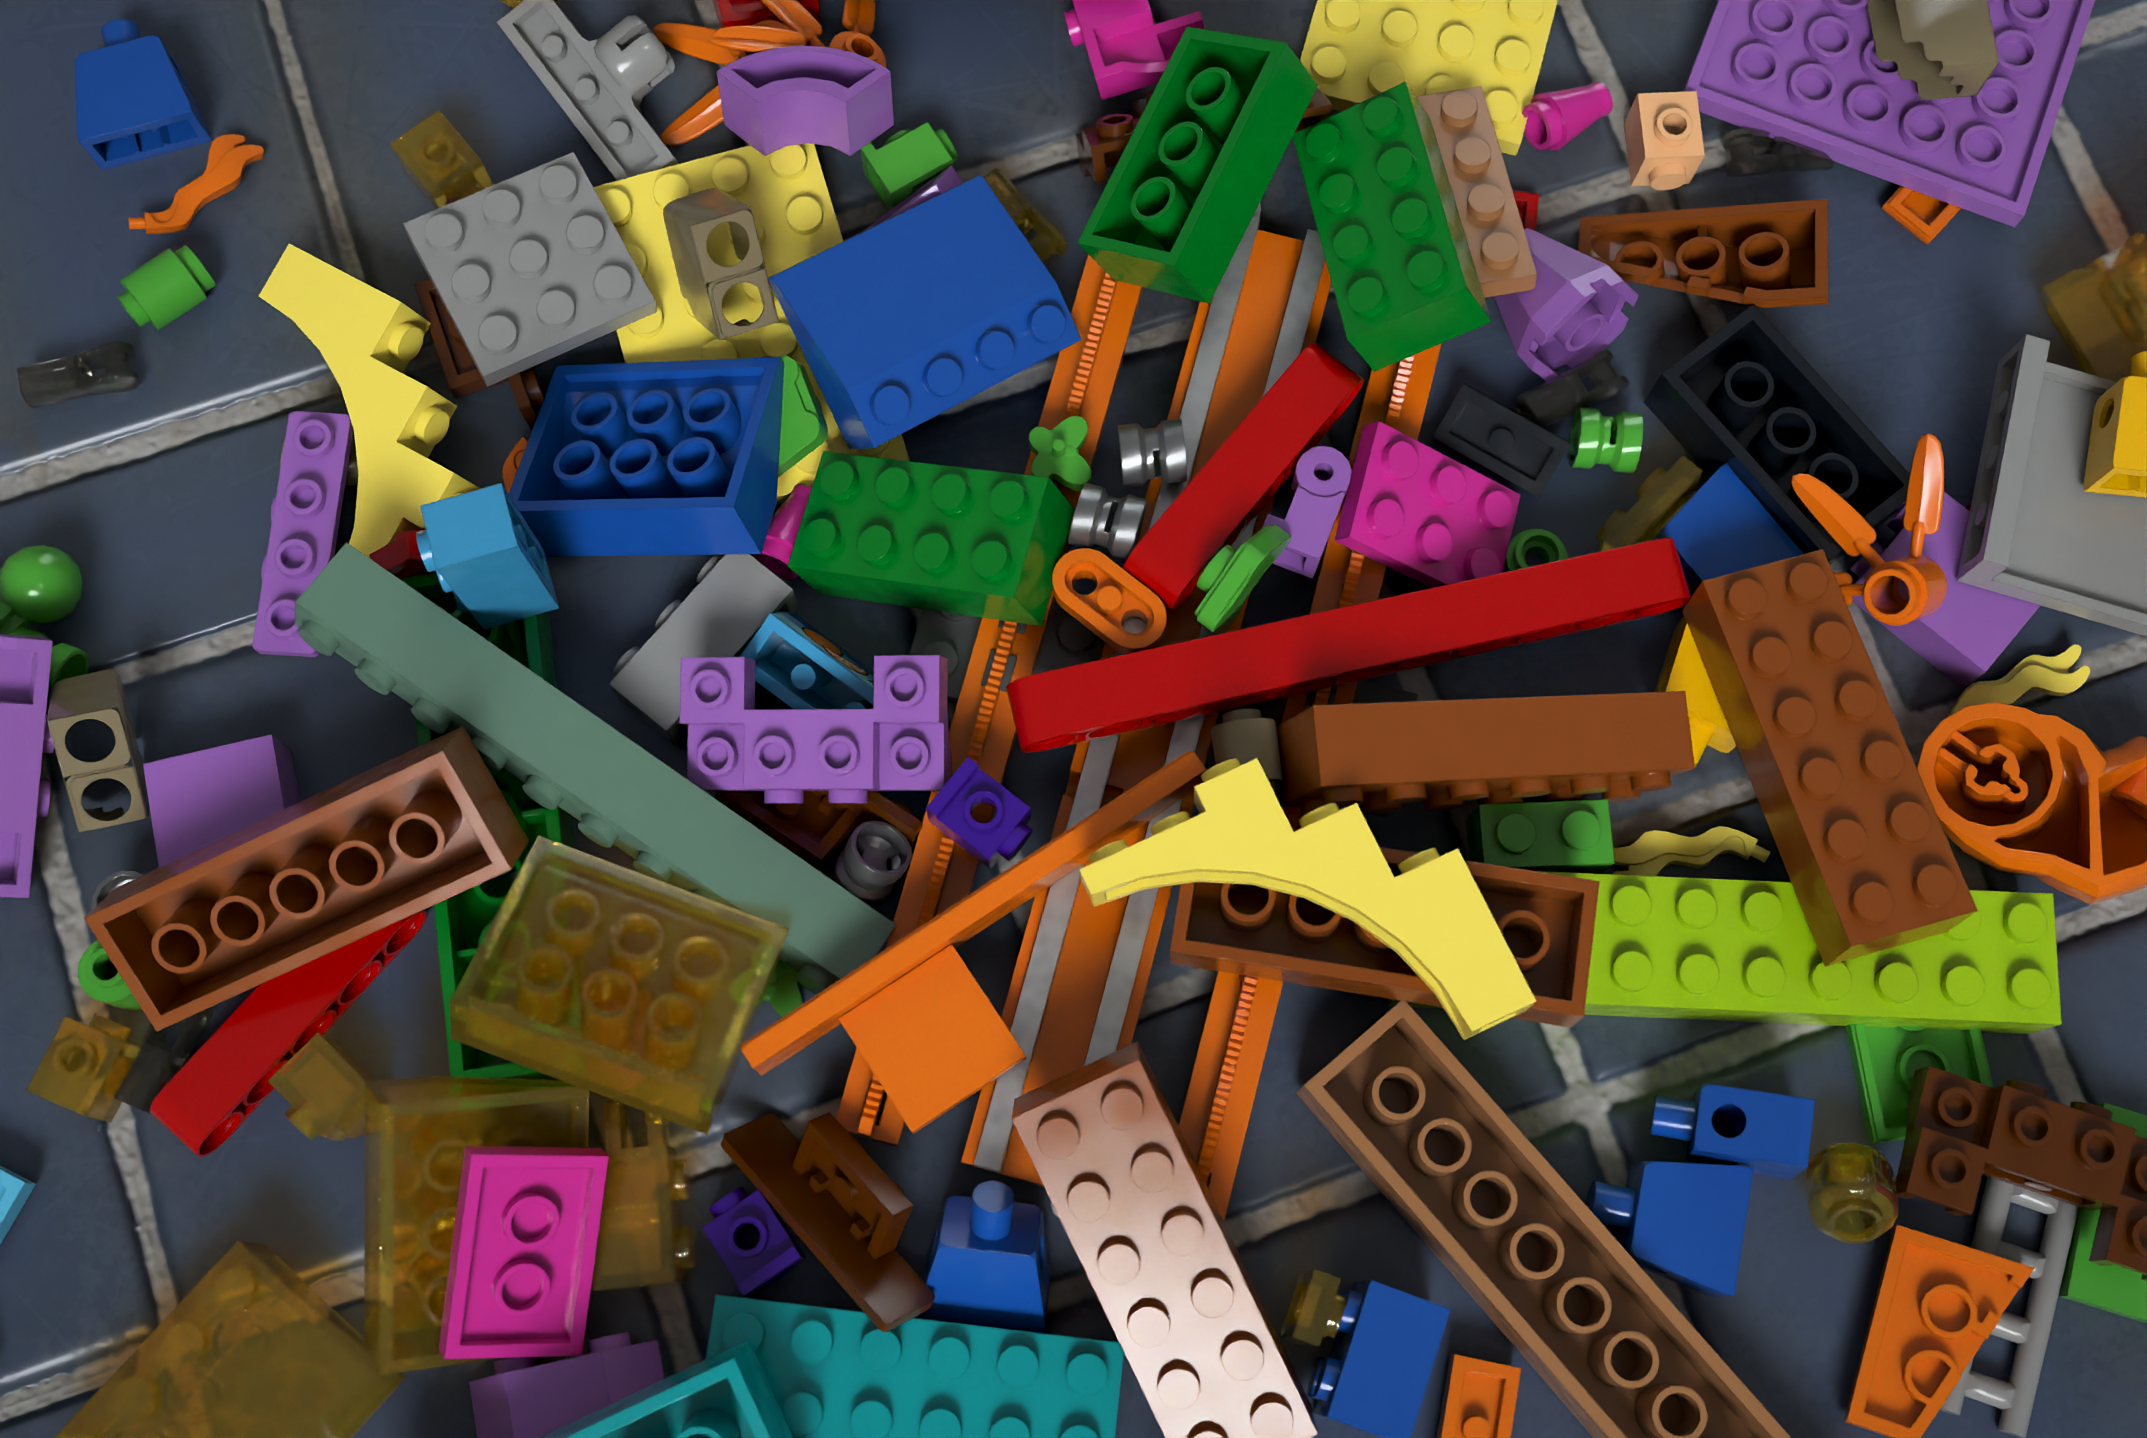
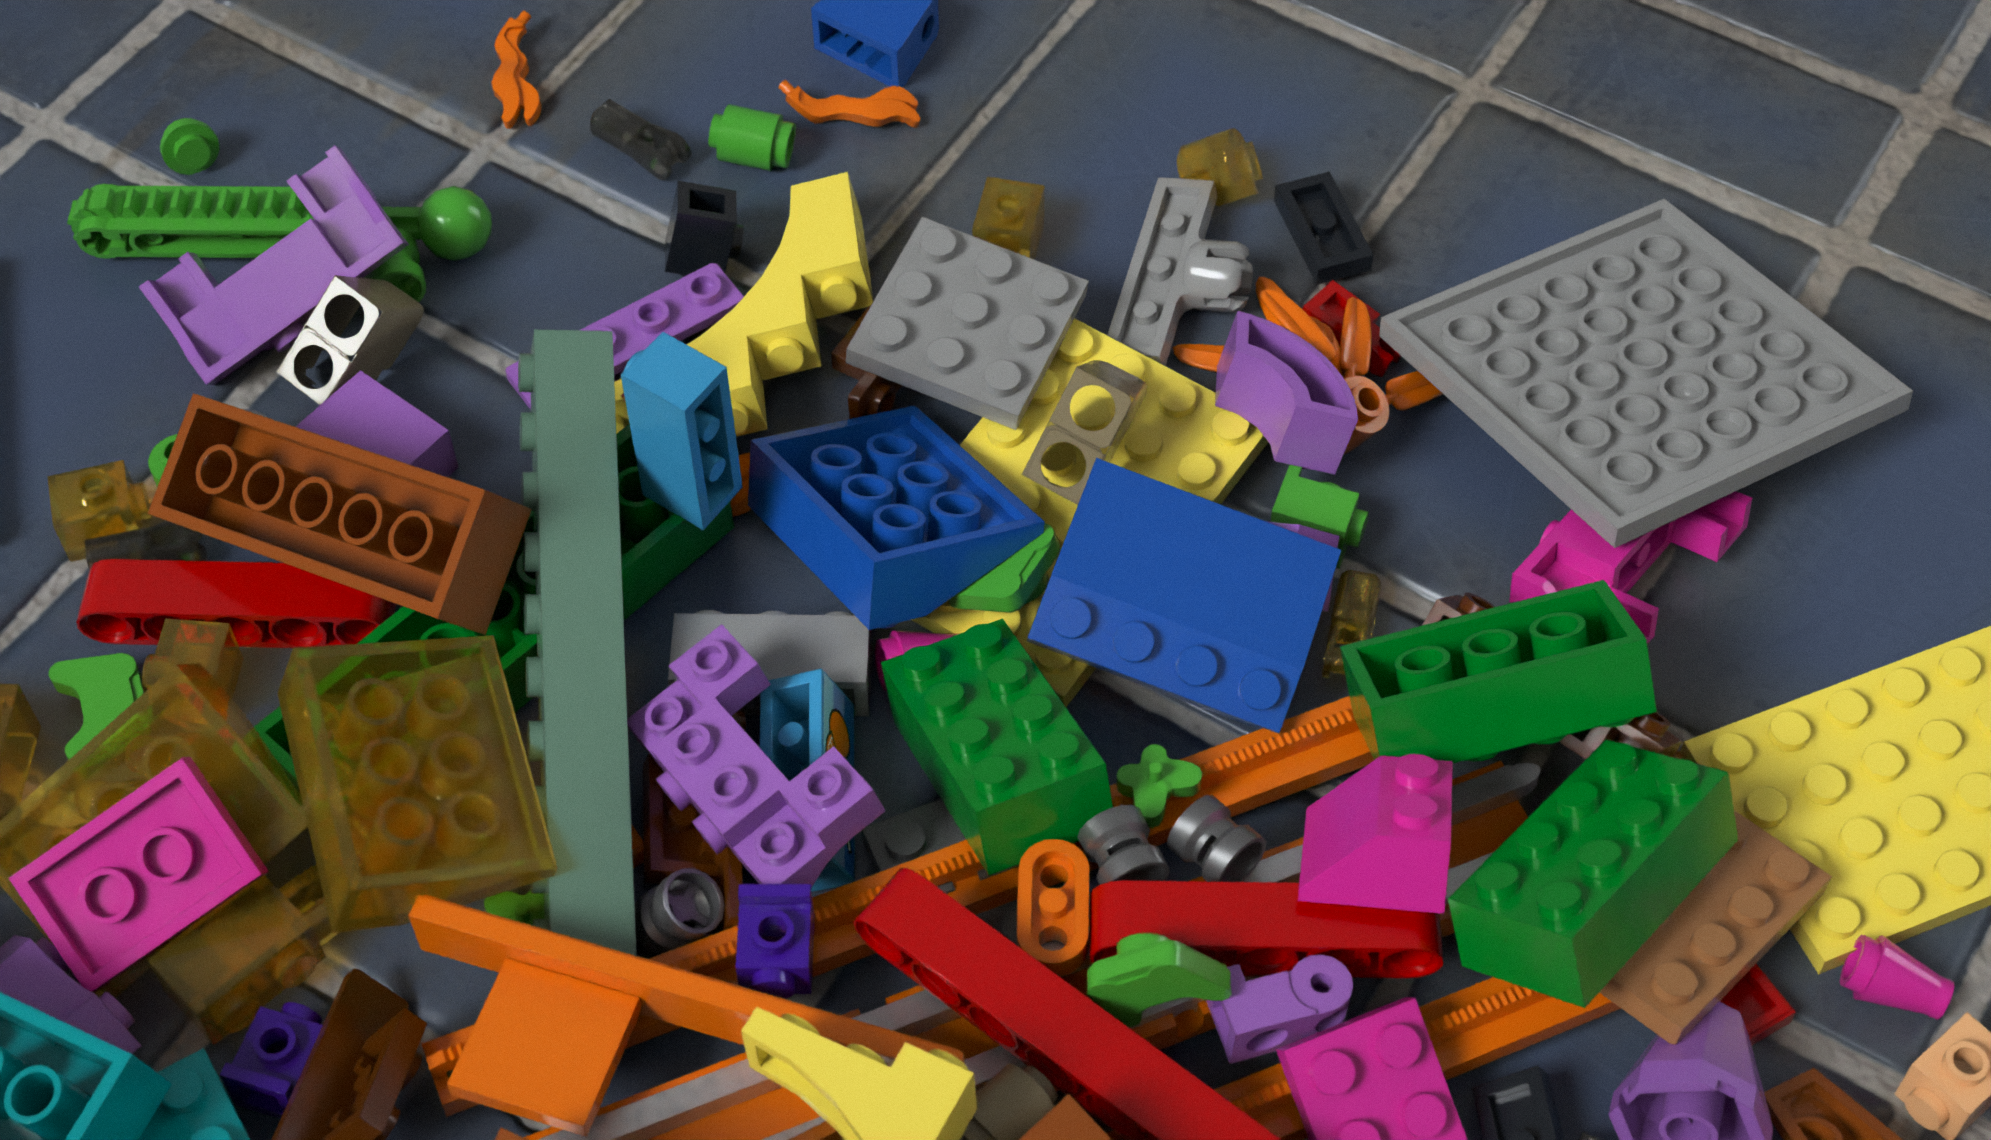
camera: 55 degrees right, 20 degrees down
(237, 397) = (702, 229): none -> black brick
(302, 1173) = (103, 686): none -> bright green piece
(1257, 341) = (1381, 837): none -> dark pink slope

